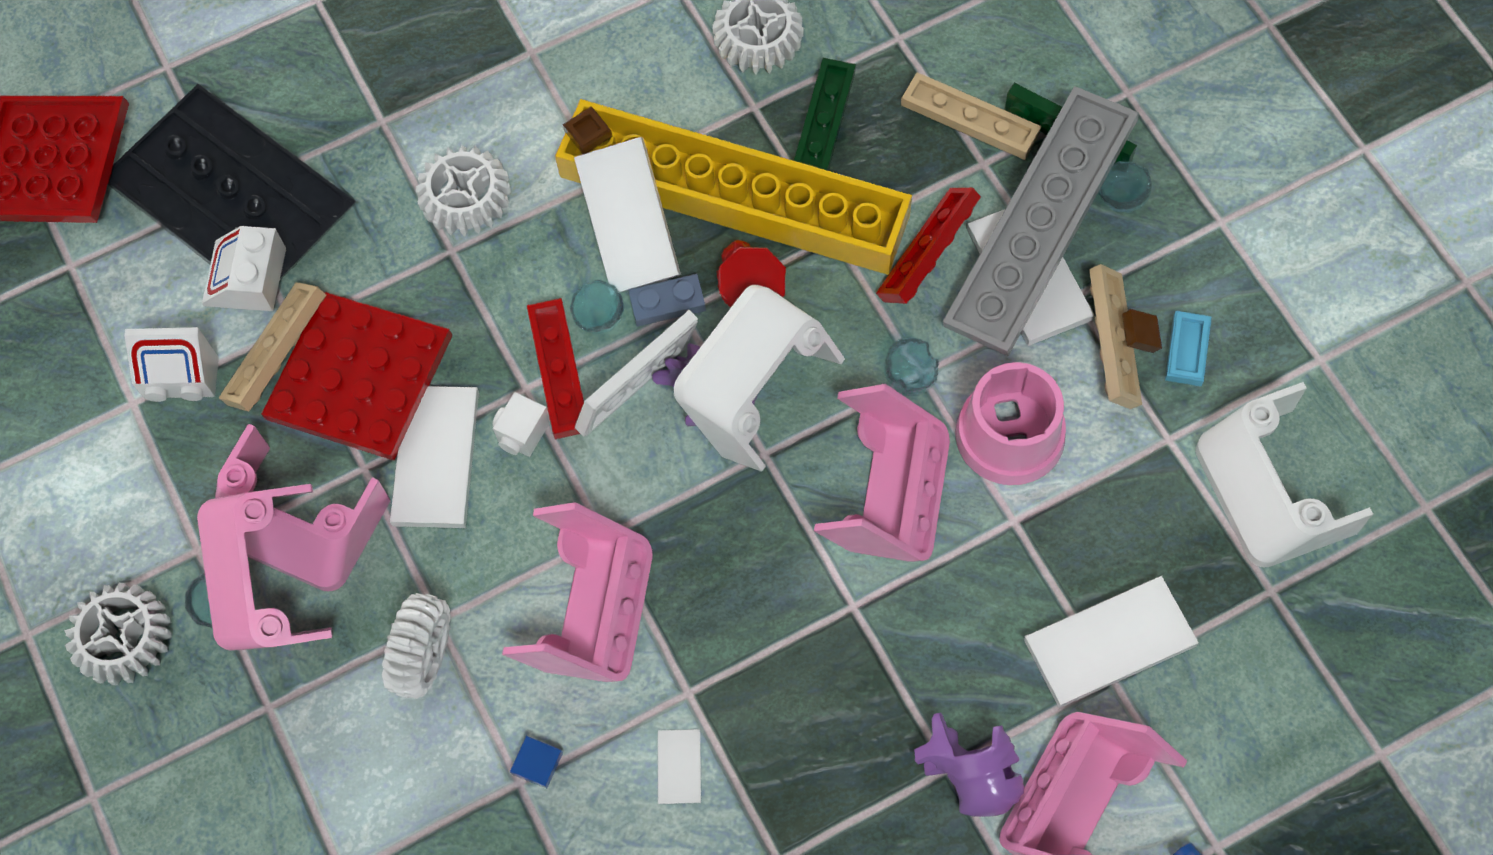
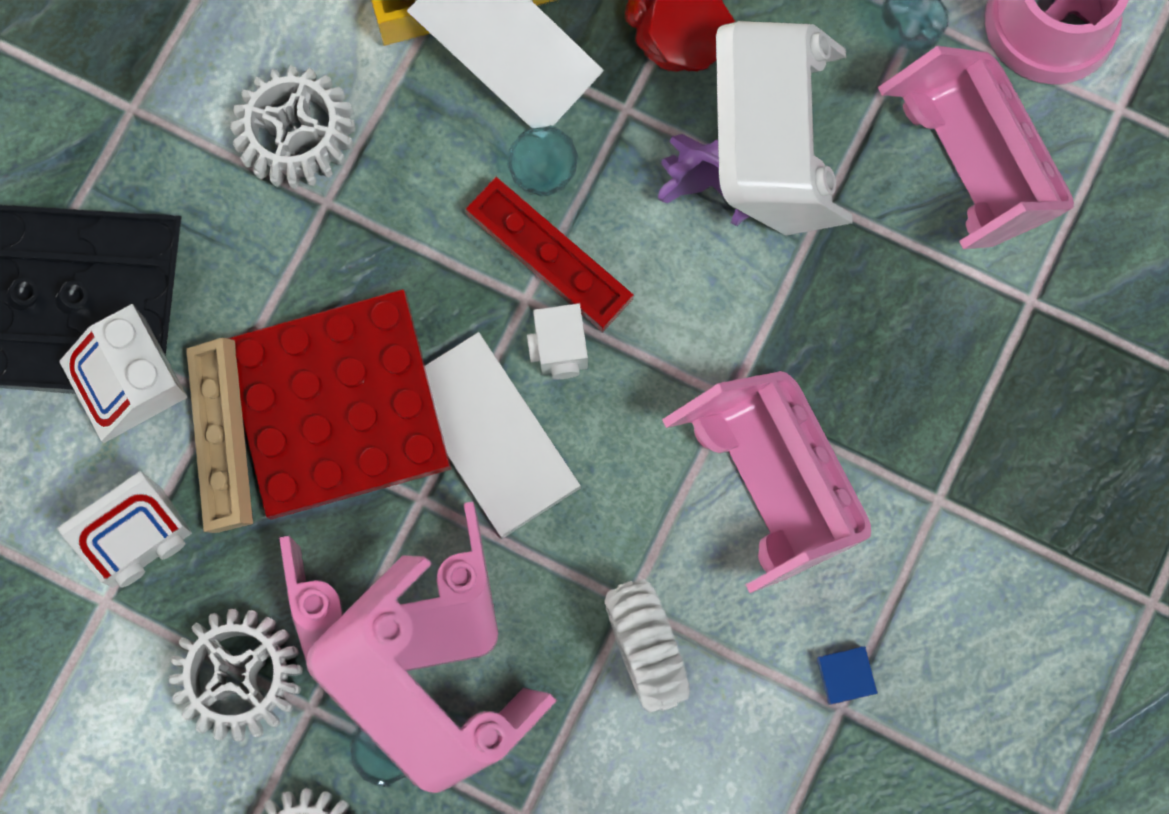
camera: 40 degrees left, 10 degrees up
(153, 482) = (218, 687): none -> white gear
(635, 374) = (652, 205): white tile -> none
(666, 300) = (603, 106): sand blue plate -> none
(679, 766) = (986, 579): white sticker -> none

